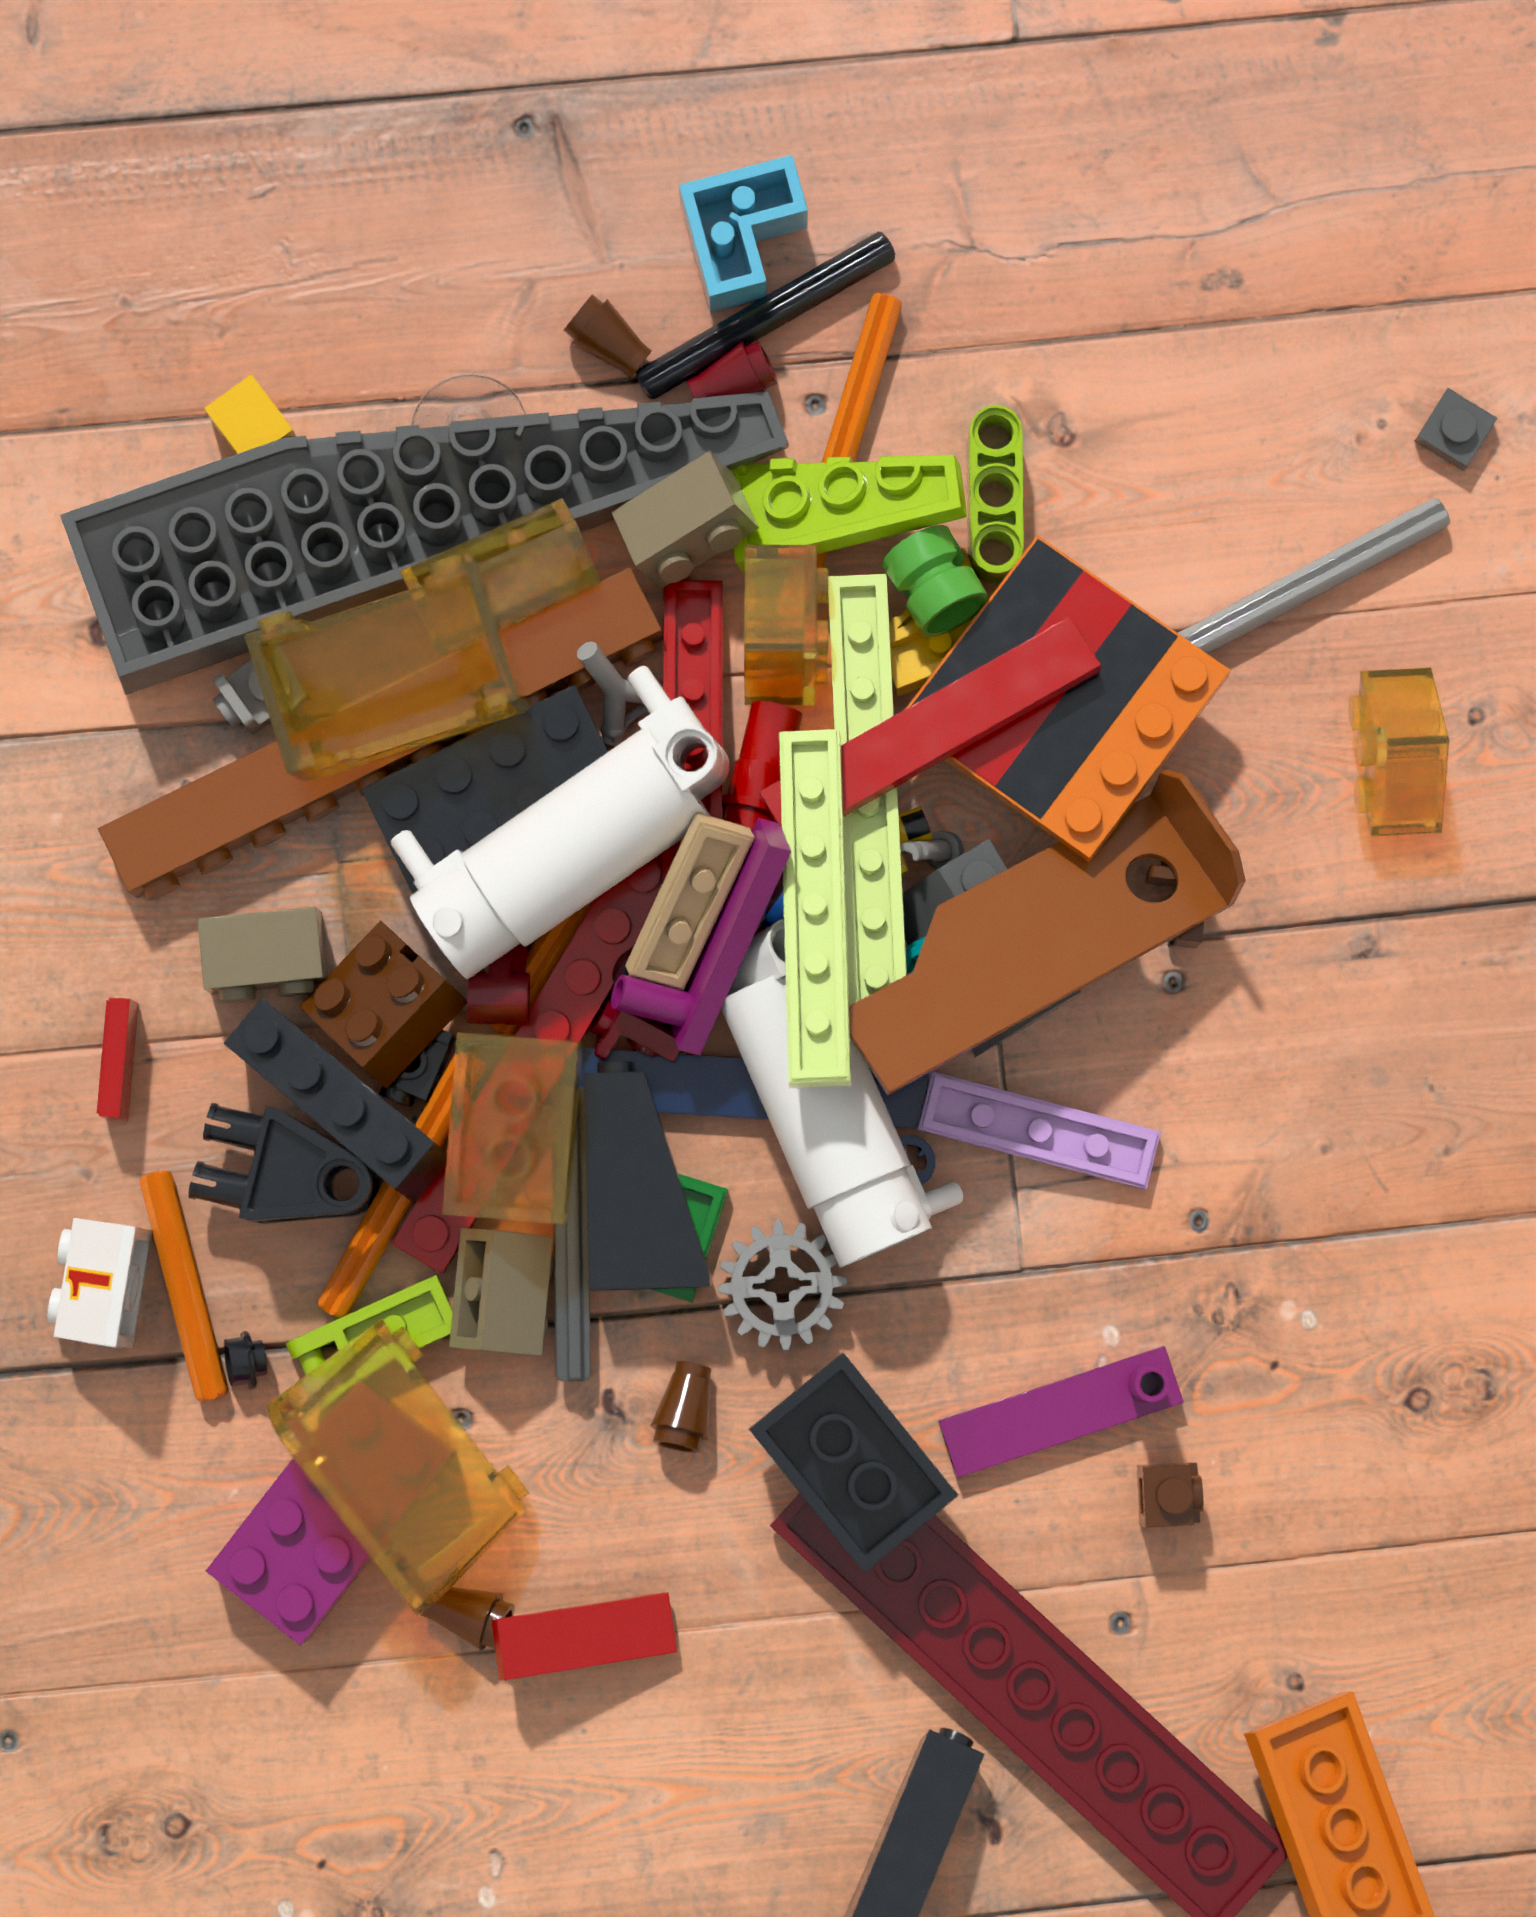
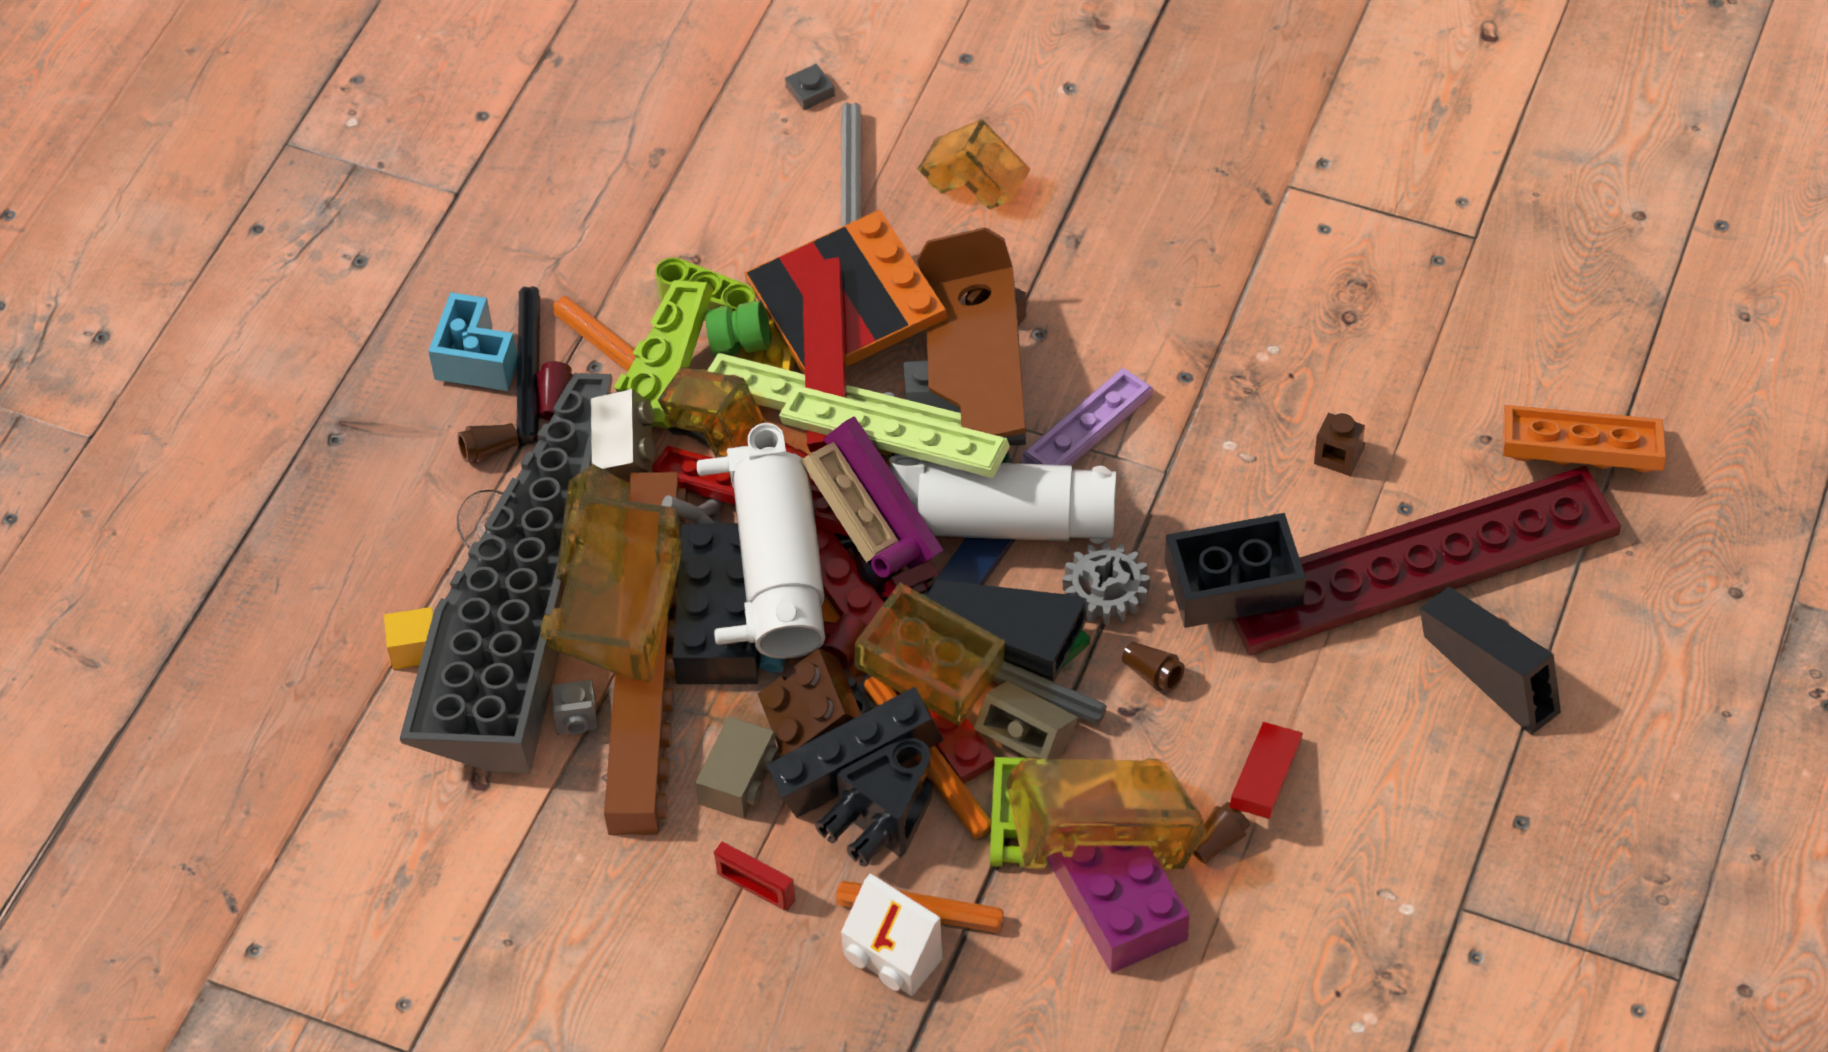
camera: 60 degrees left, 30 degrees down
(244, 1360) = (987, 889): black plate -> none
(1060, 1411) = (1263, 460): magenta piece -> none

